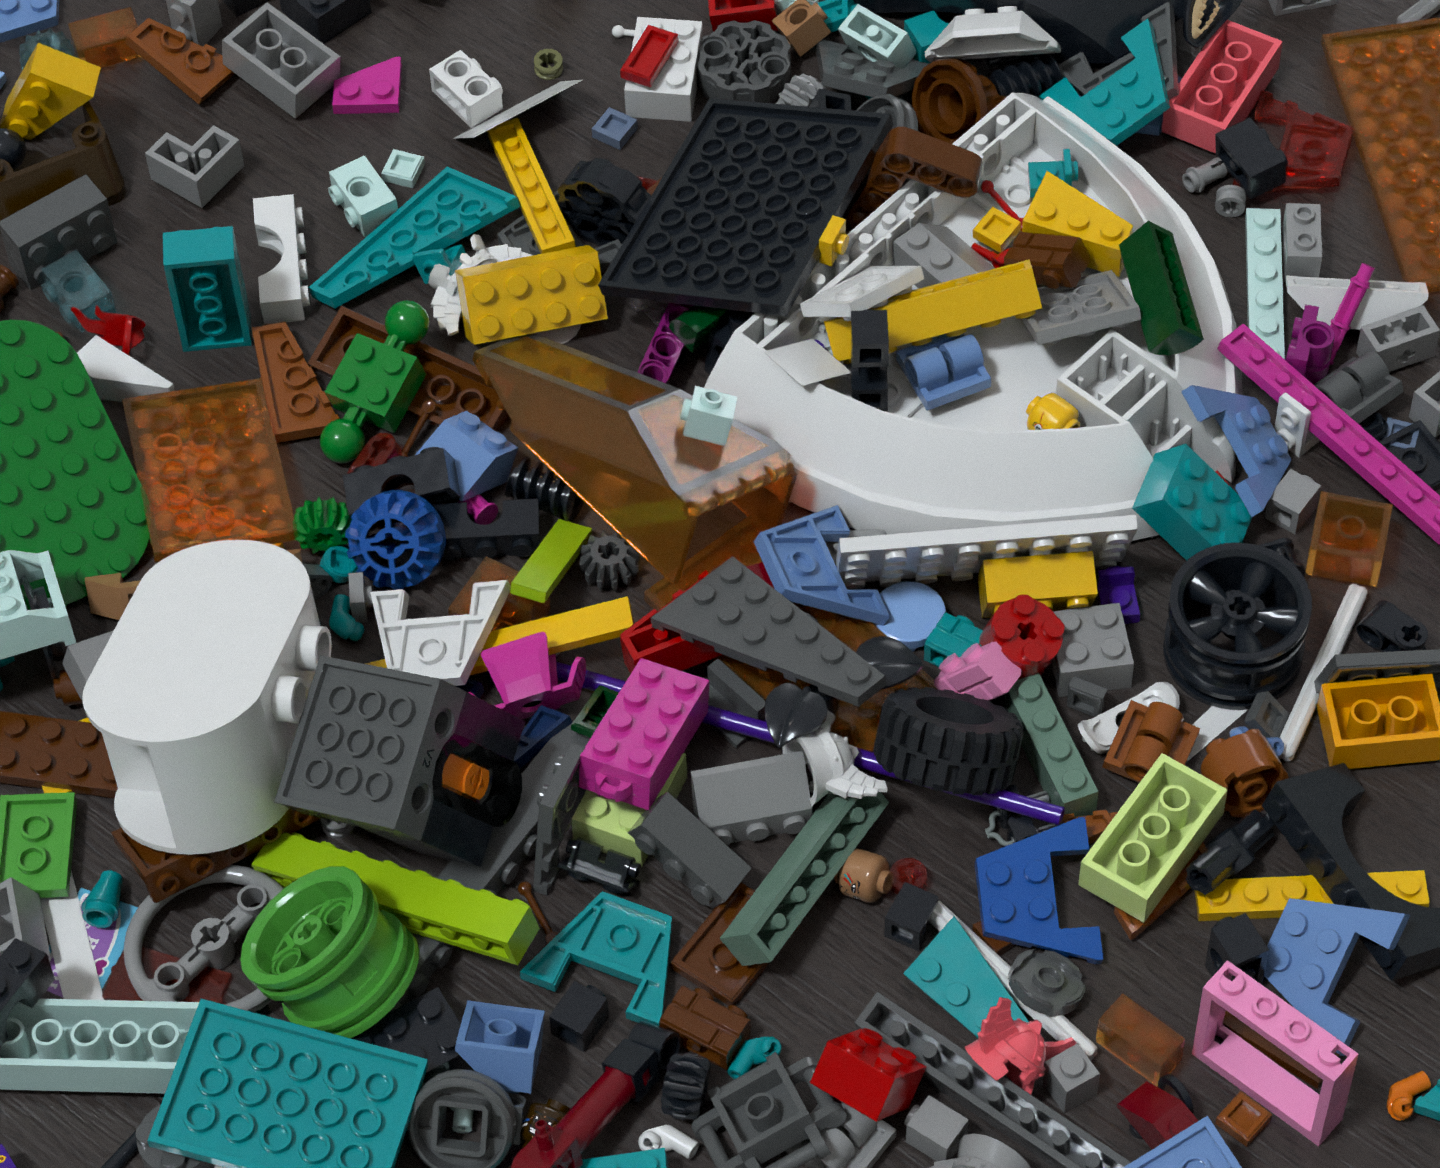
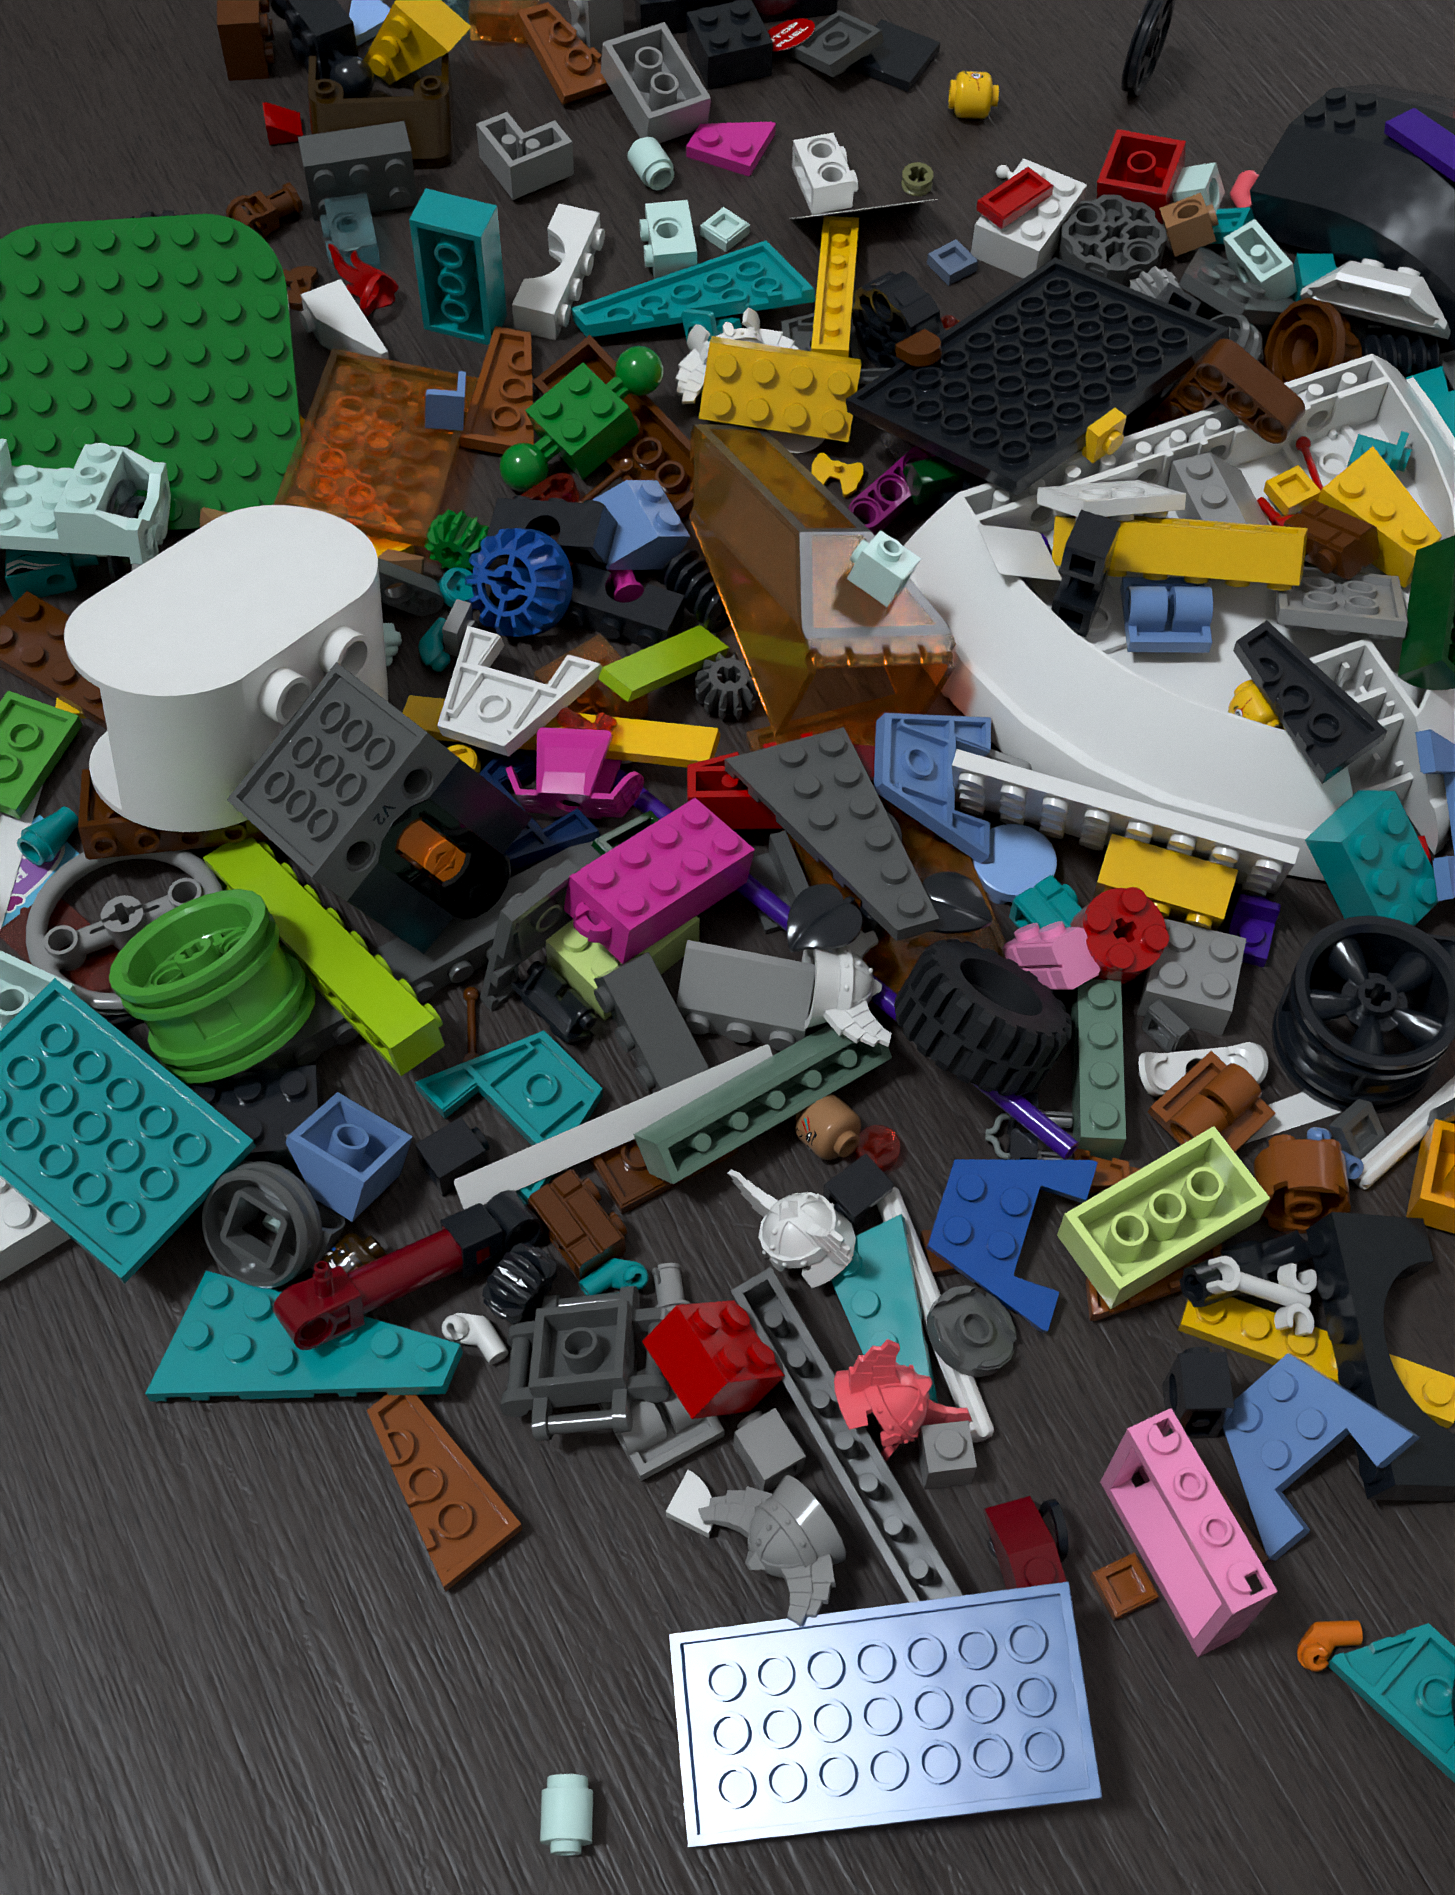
camera: 20 degrees right, 5 degrees up
(254, 414) = (445, 407): none -> medium blue panel
(310, 132) = (651, 163): none -> light aqua brick
(502, 635) = (571, 719): none -> clear red arm
(618, 346) = (849, 475): none -> yellow piece
(640, 219) = (920, 349): none -> reddish brown tile
(689, 950) = (596, 1135): none -> white sticker
(800, 1044) = (669, 1285): none -> light grey pin
(882, 959) = (801, 1232): none -> white helmet
(1094, 401) = (1312, 708): none -> black wing
(1140, 1039) = (1045, 1443): clear orange brick -> none
(1268, 855) = (1289, 1291): none -> white bar

